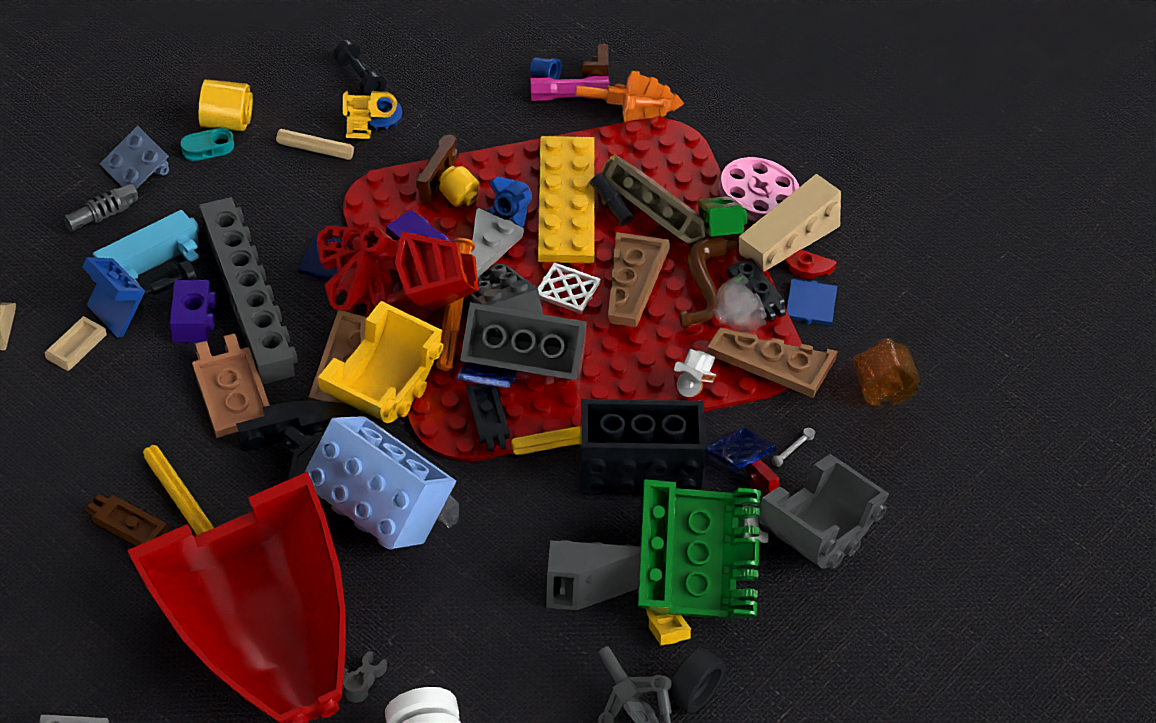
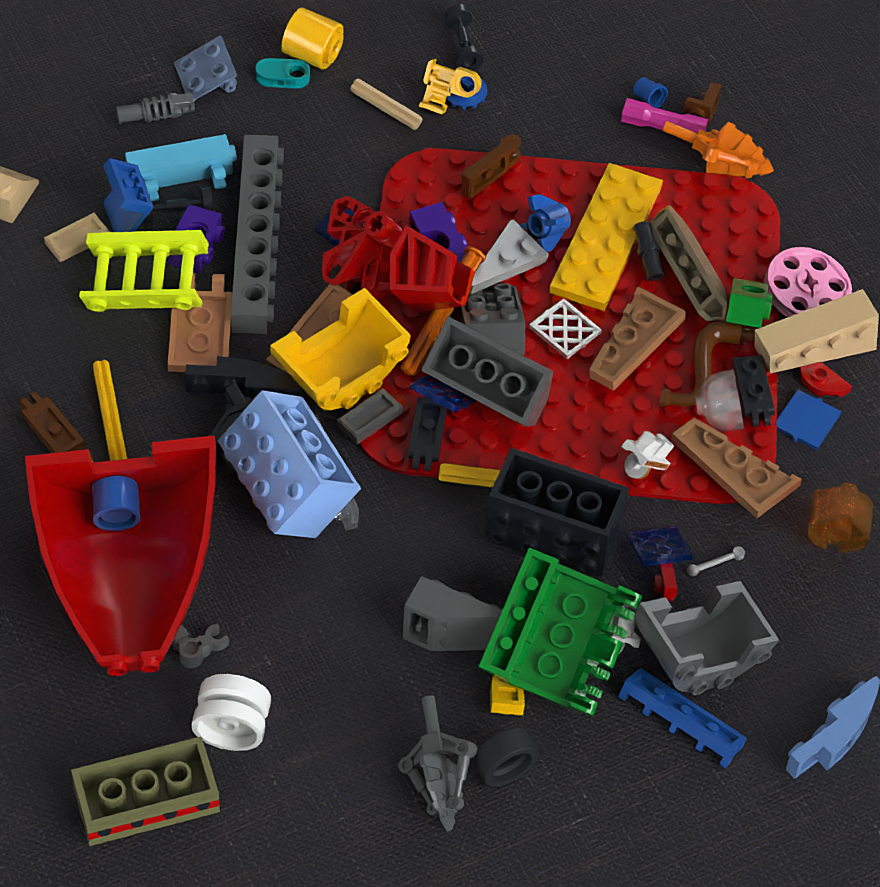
camera: 20 degrees right, 5 degrees up
(152, 325) = (144, 243): none -> neon yellow fence
(225, 570) = (115, 503): none -> blue piece
(427, 417) = (369, 416): none -> dark grey tile
(459, 186) = (503, 191): yellow head -> none
(831, 589) = (683, 715): none -> blue hinge
(971, 556) = (841, 730): none -> medium blue slope

